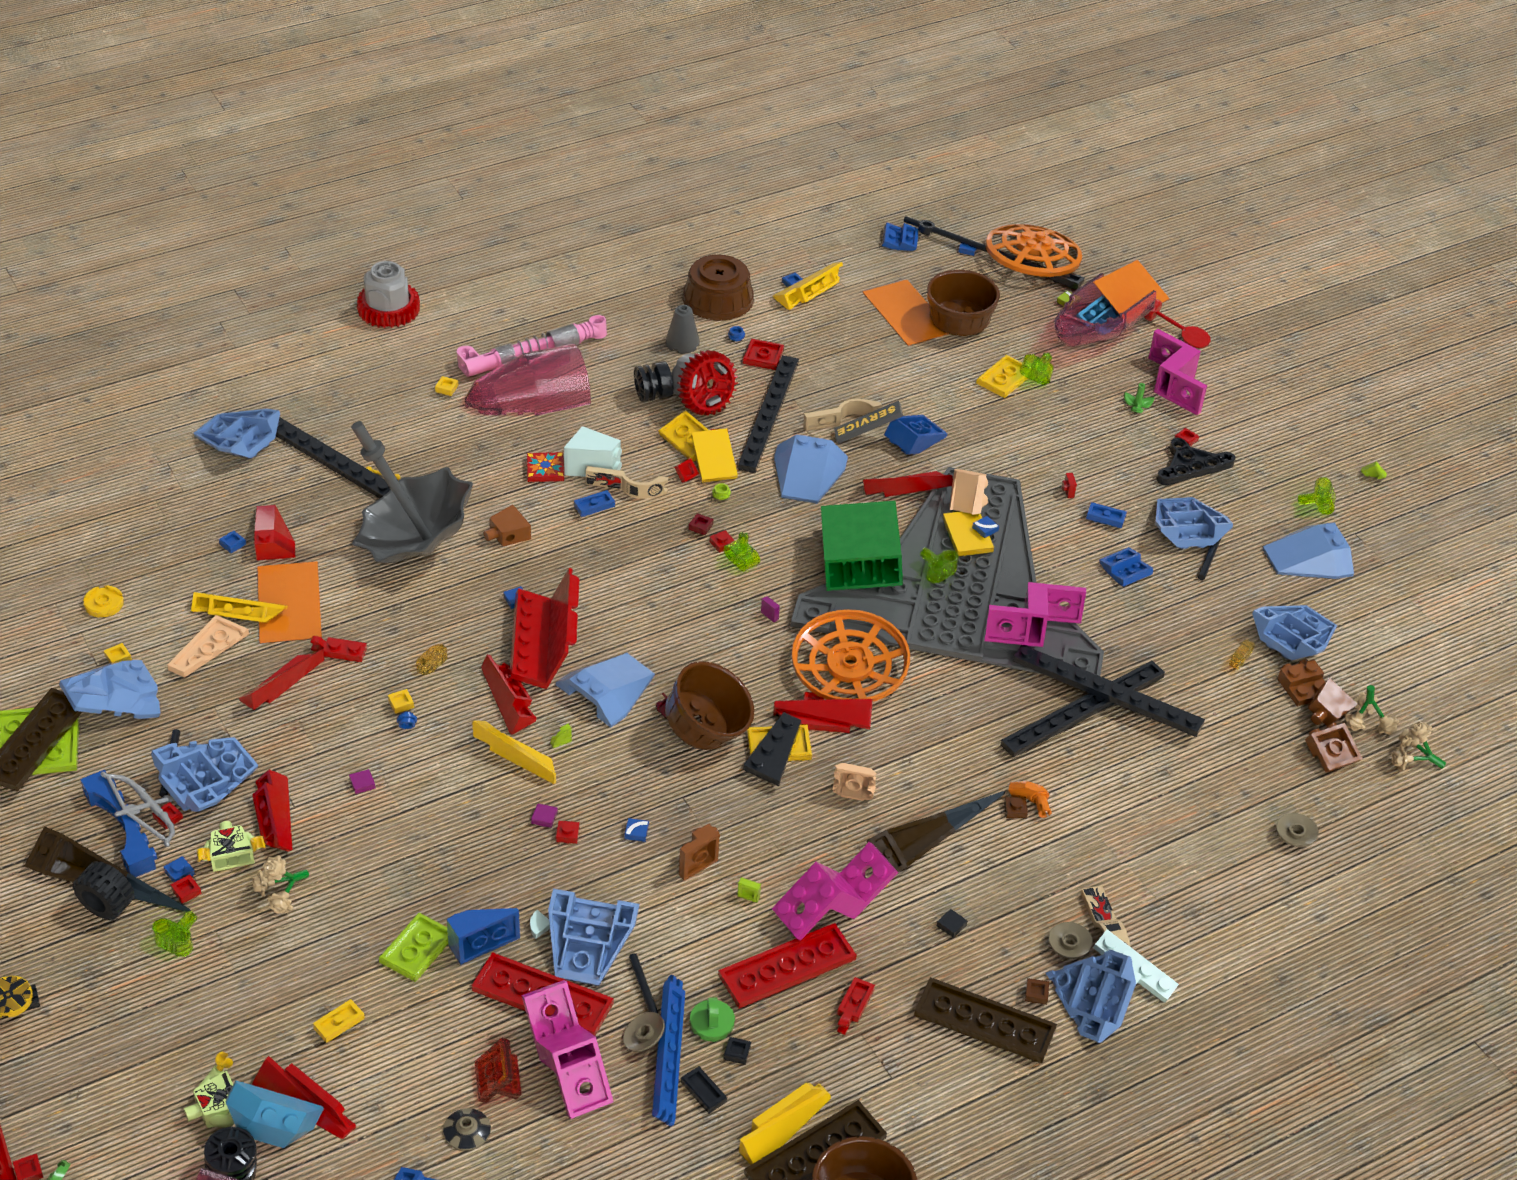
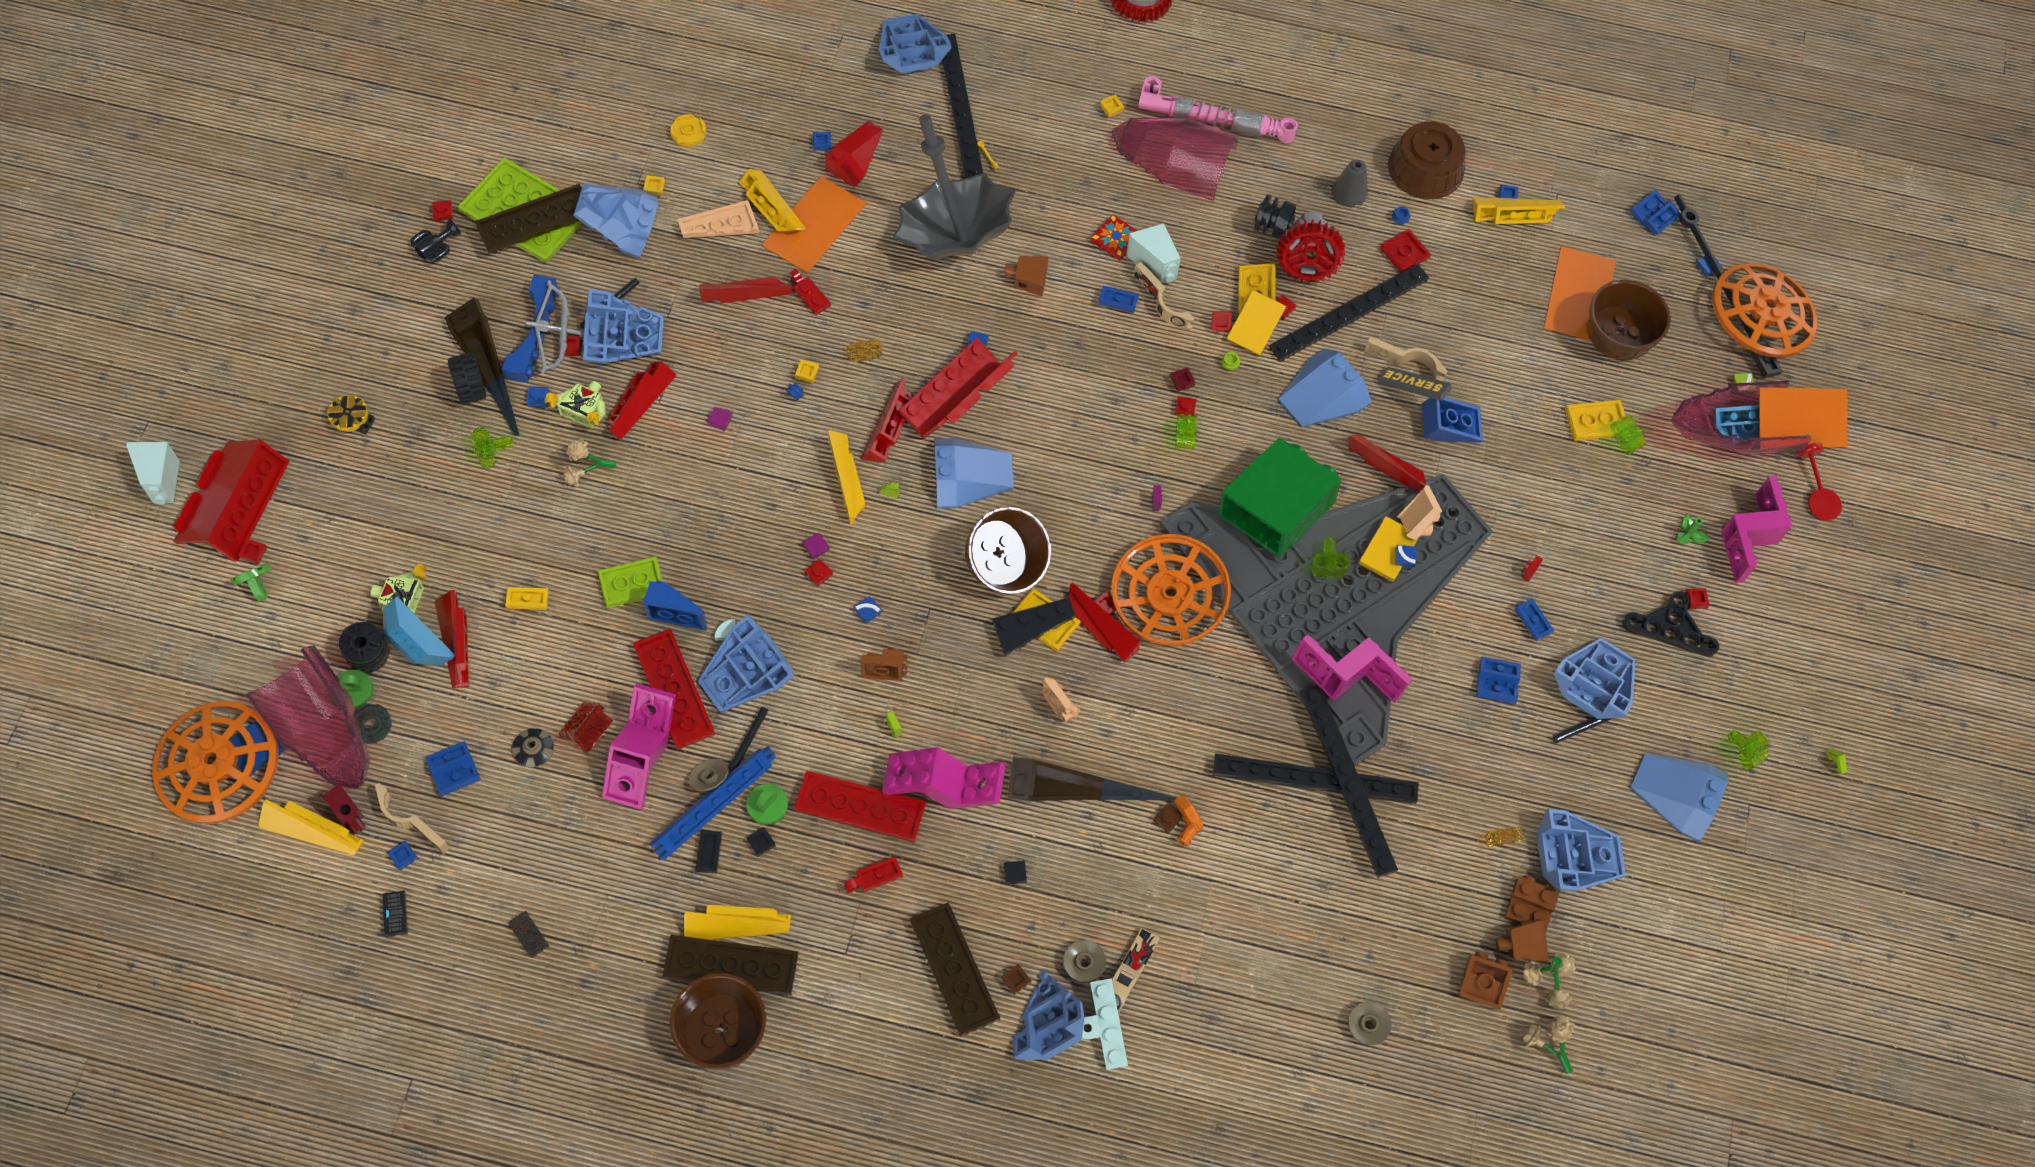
camera: 40 degrees right, 20 degrees up
(186, 889) = (527, 416): red plate -> none

